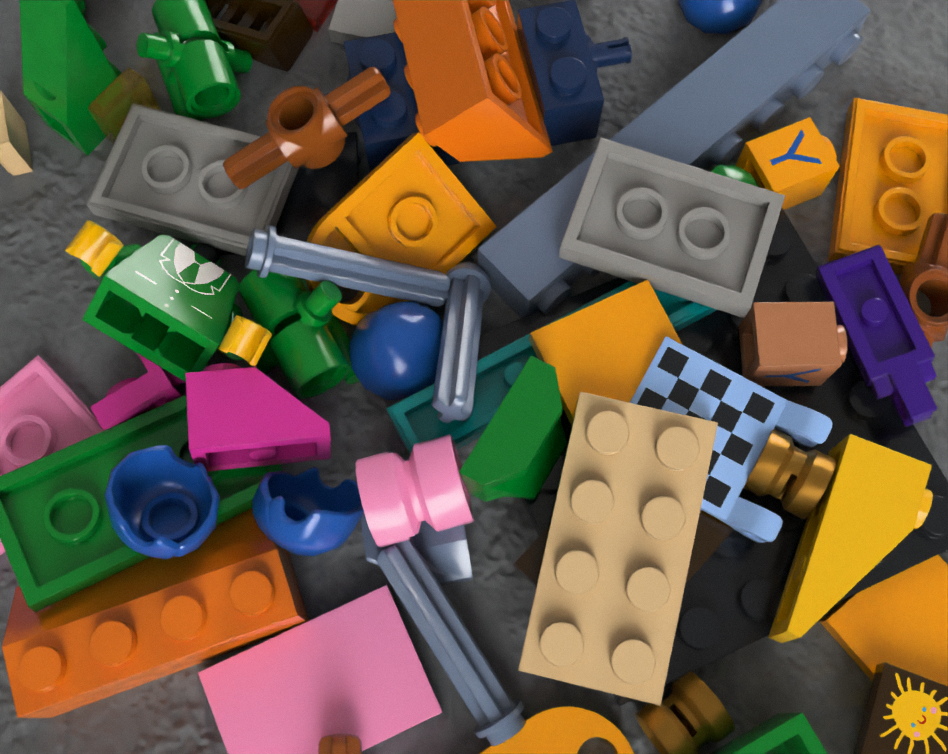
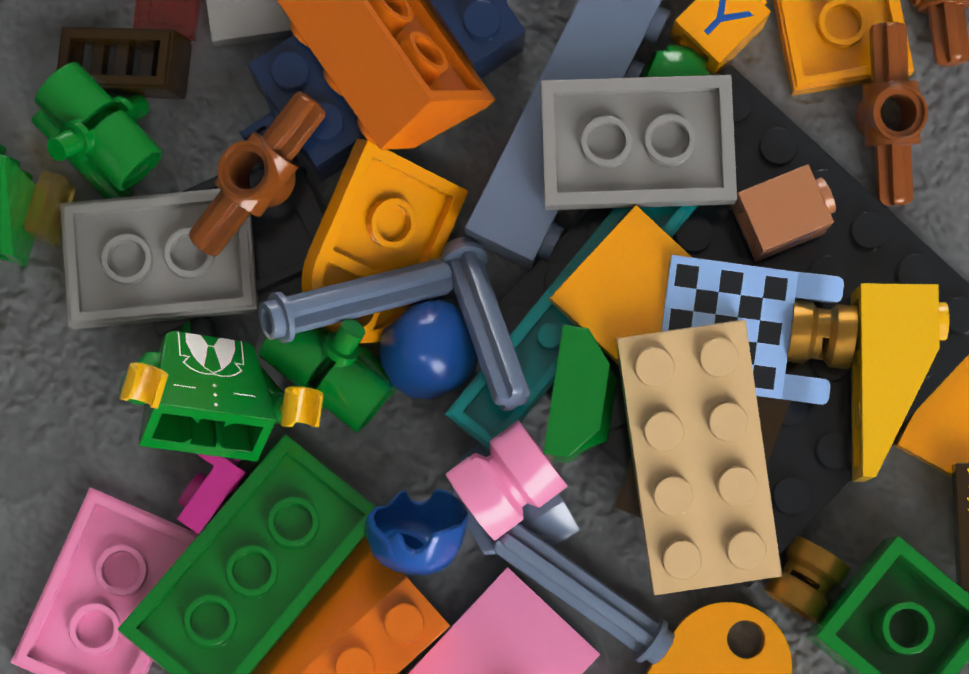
camera: 25 degrees left, 10 degrees up
(161, 503) = (294, 579): blue hair -> none
(249, 421) = (329, 474): dark pink slope -> none
(881, 331) = (858, 162): dark purple hinge -> none

